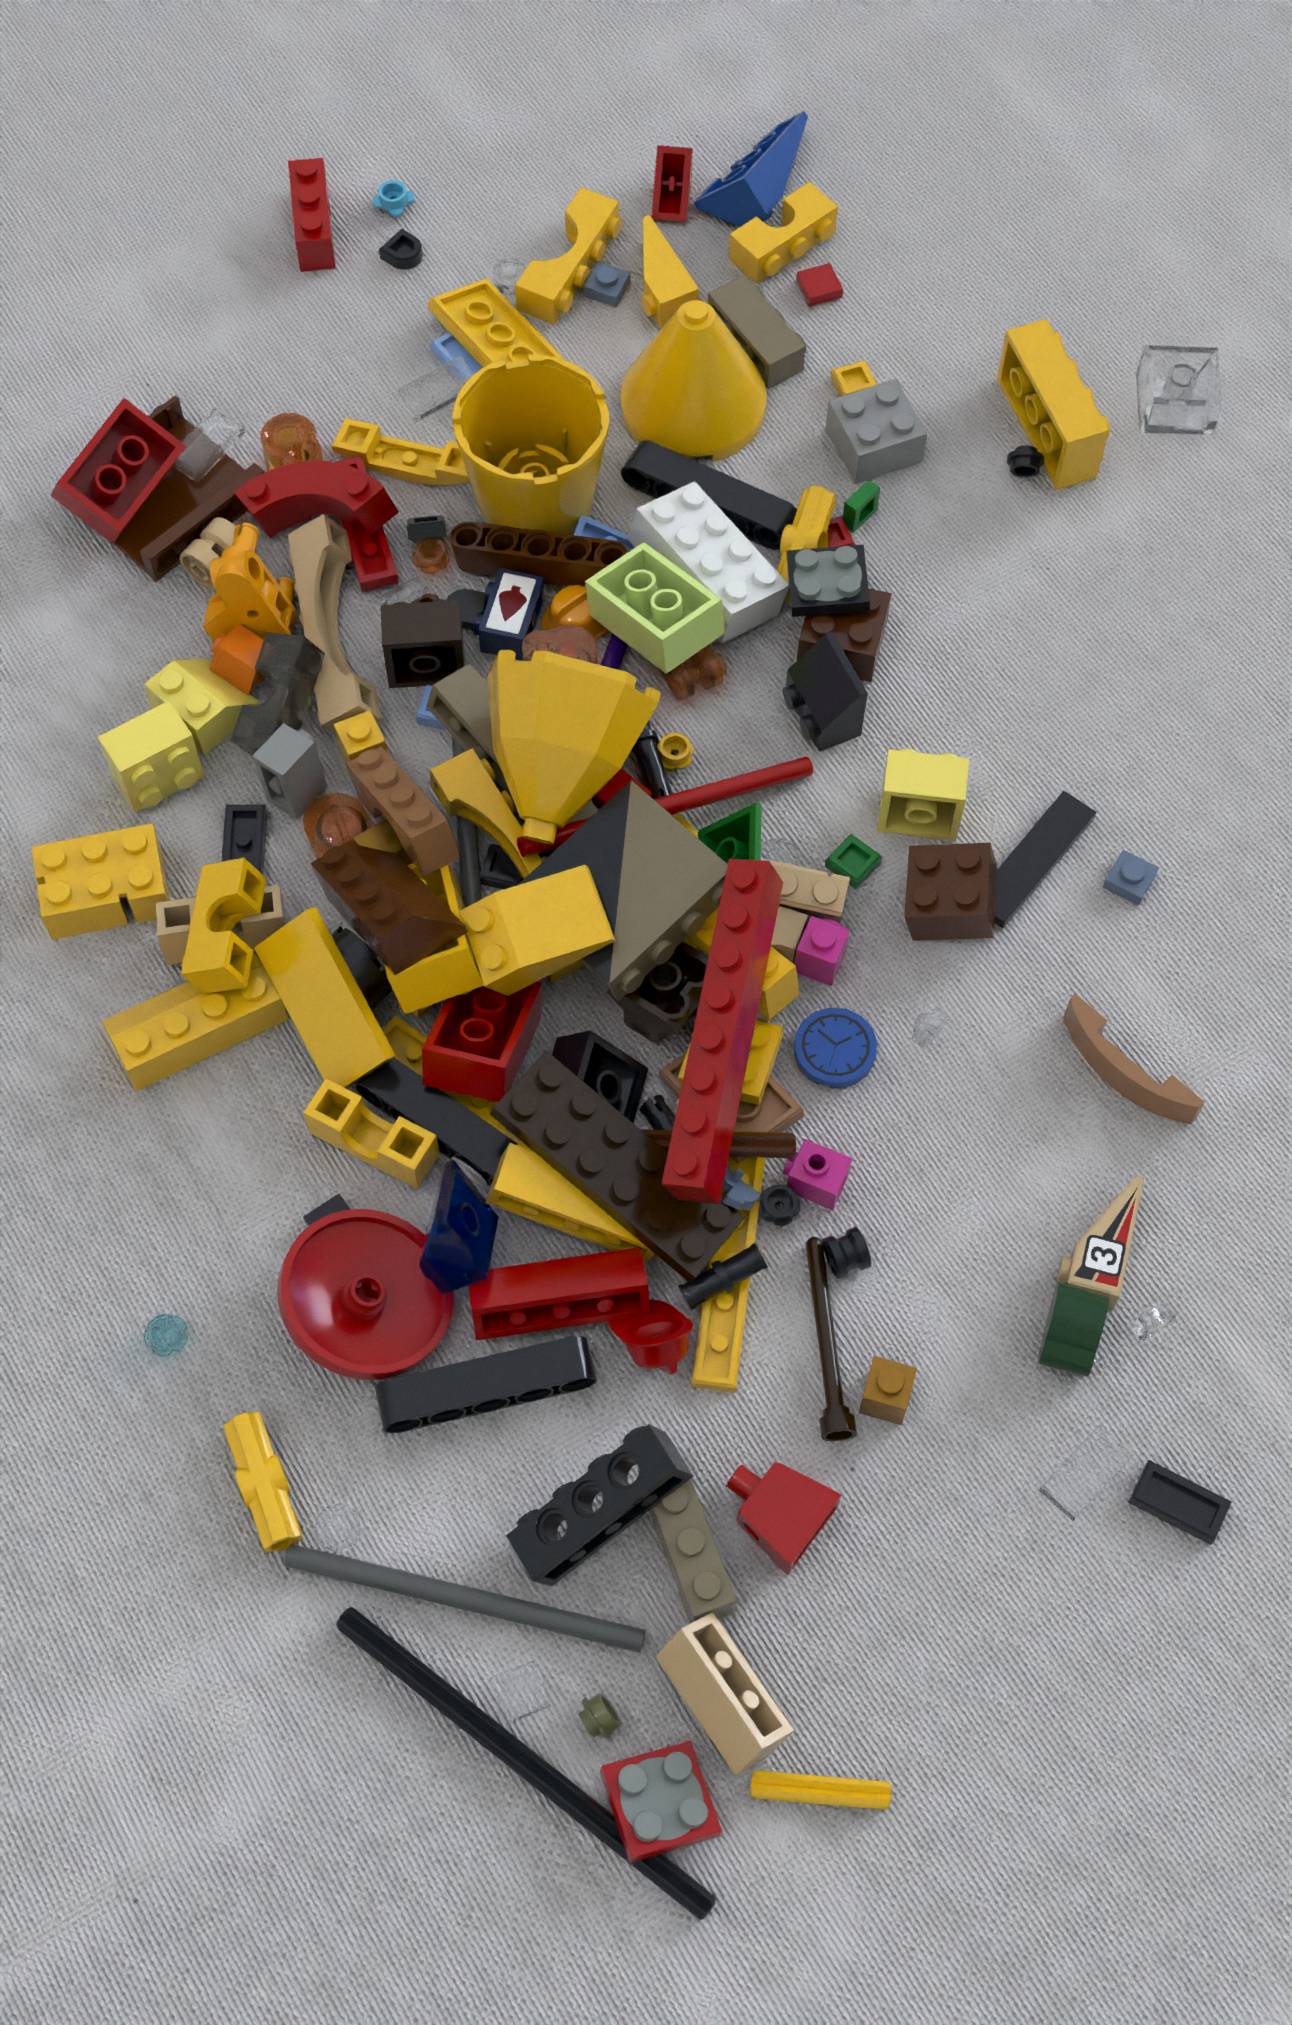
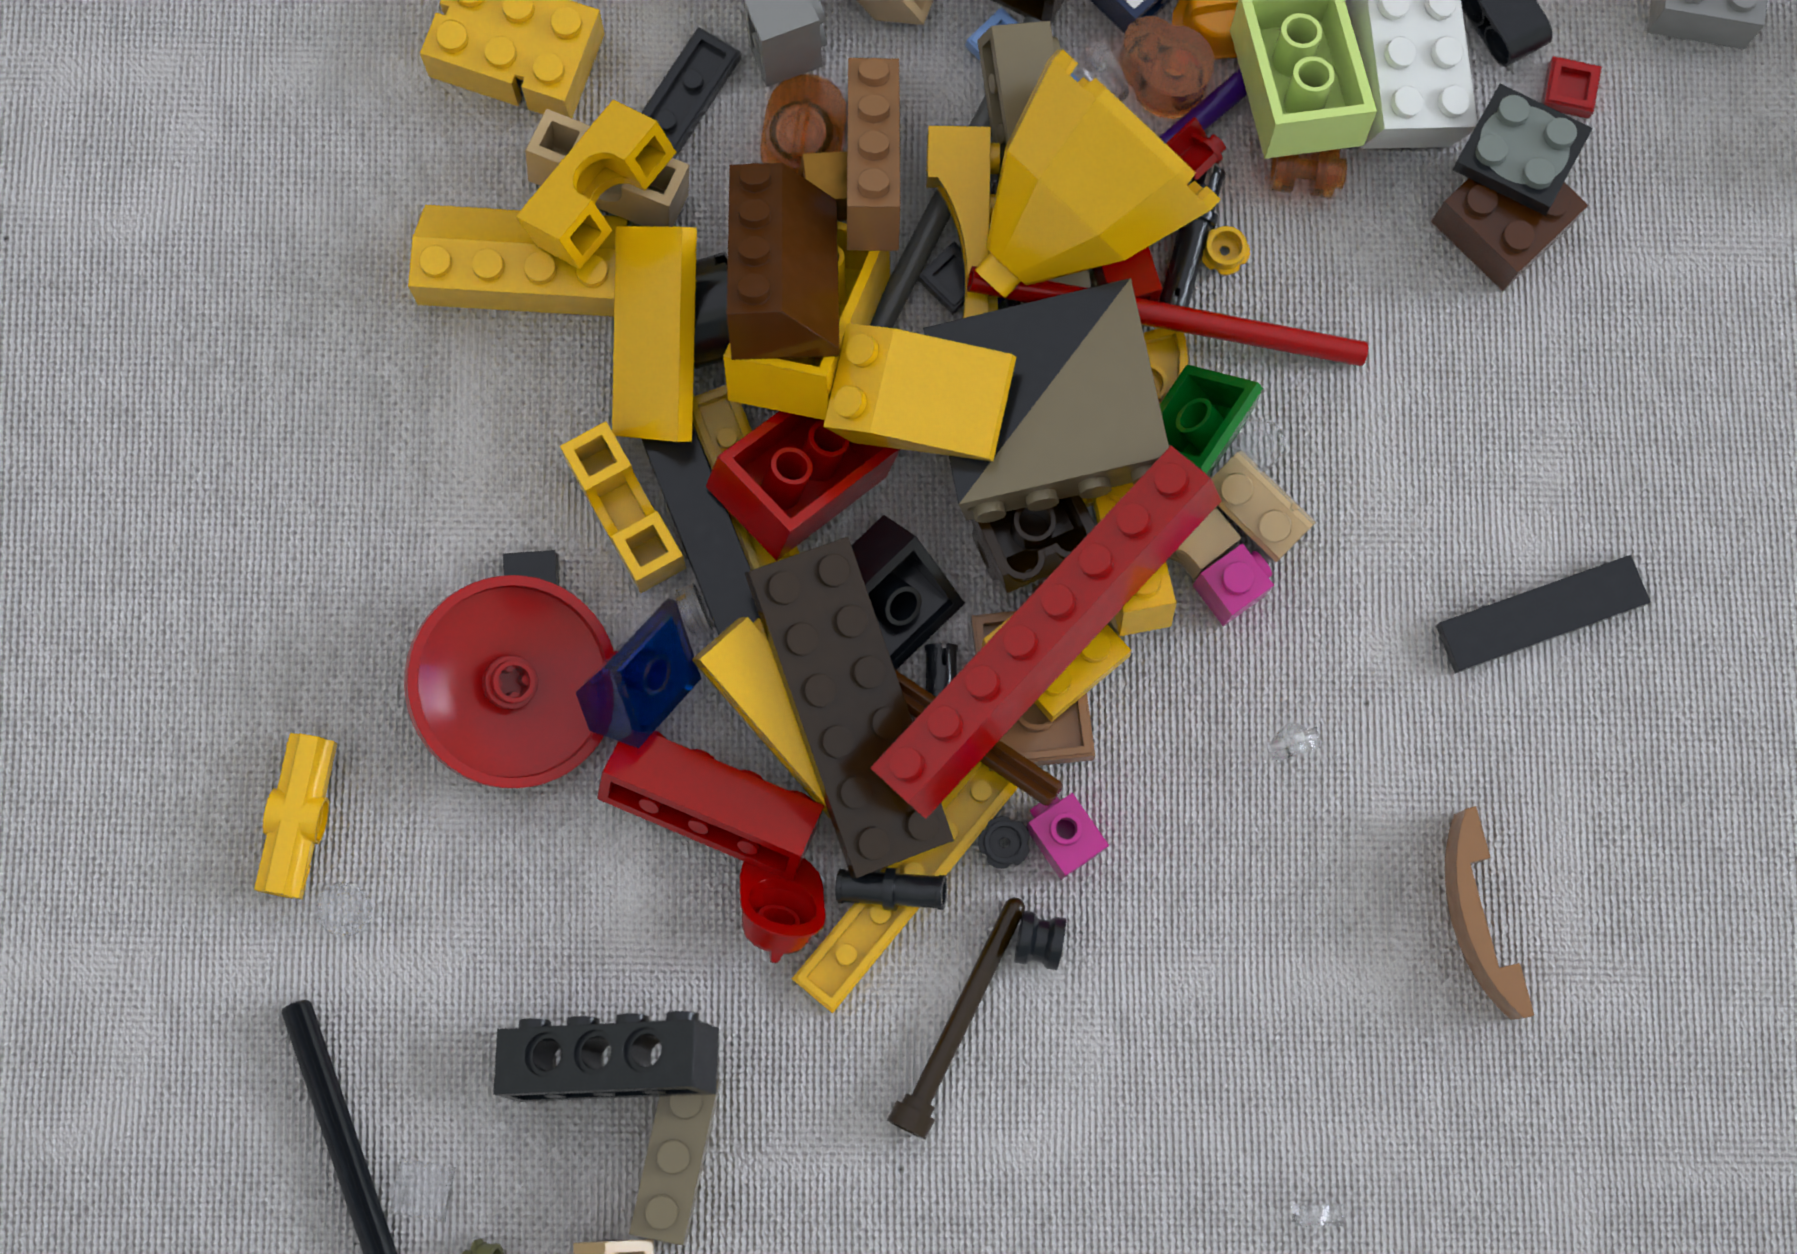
camera: 25 degrees right, 15 degrees up
(158, 1326) = (289, 584): clear light blue plate -> none
(358, 735) = (885, 34): yellow brick -> none
(465, 1598) = (426, 1061): dark grey piece -> none
(485, 1384) = (579, 851): black beam -> none
(738, 1193) = (967, 810): sand blue piece -> none
(782, 1511) = (795, 1173): red torso -> none
(808, 527) = (1545, 69): yellow piece -> none
(826, 694) = (1433, 284): black slope -> none
(835, 1047) = (1179, 701): blue tile -> none
(853, 860) = (1340, 496): green tile -> none
(861, 505) = (1631, 68): green tile -> none
(887, 1390) = (985, 1116): pearl gold brick -> none
(923, 794) = (1464, 470): light yellow brick -> none
(951, 891) = (1419, 603): reddish brown brick -> none
(1073, 1329) = (1223, 1173): dark green piece -> none
(1103, 1251) = (1308, 1111): slope -> none
(1130, 877) = (1637, 700): sand blue plate -> none

